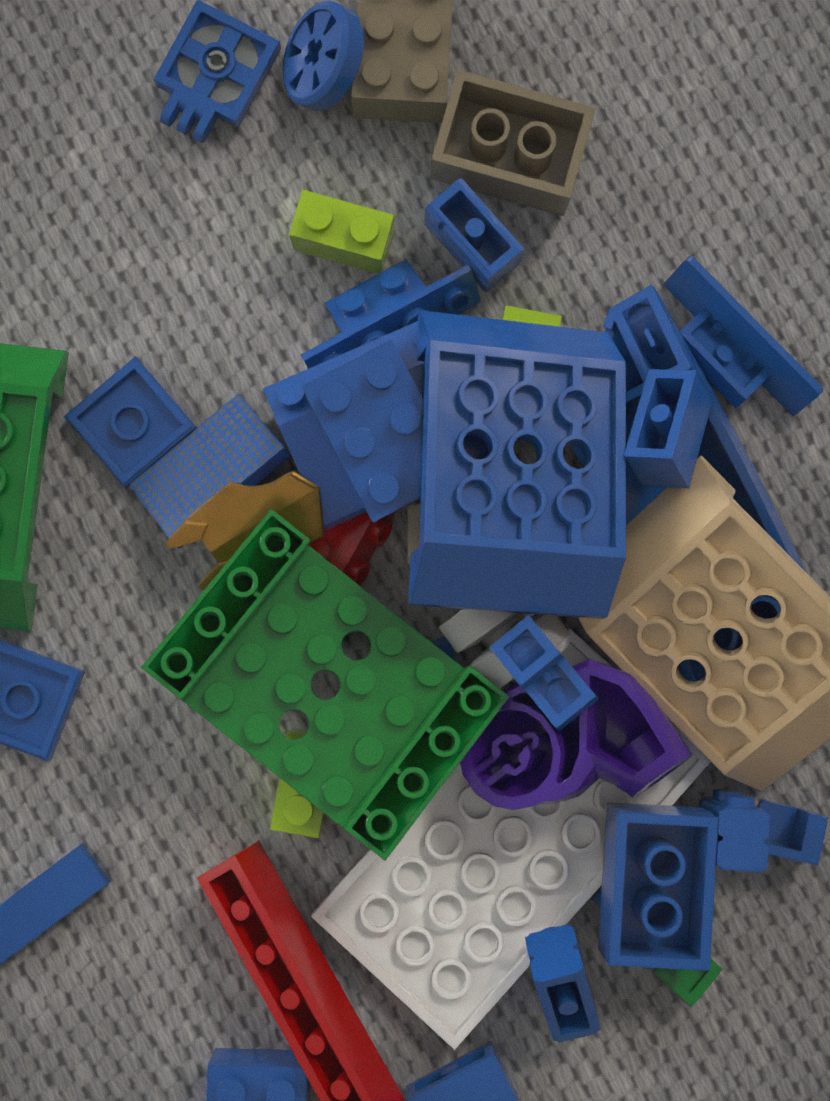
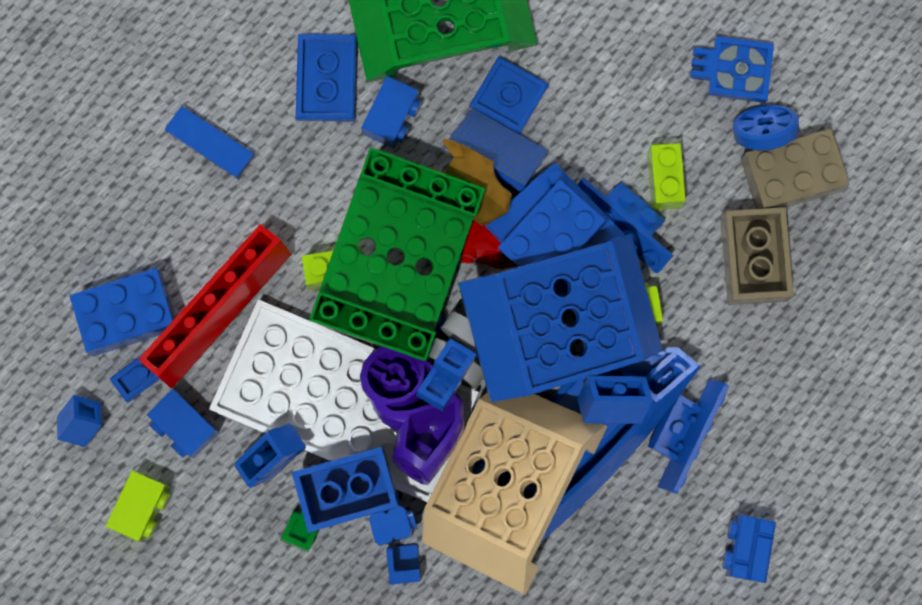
camera: 70 degrees right, 5 degrees down
(92, 610) = (391, 112): none -> blue brick
(473, 234) = (692, 253): blue brick -> none

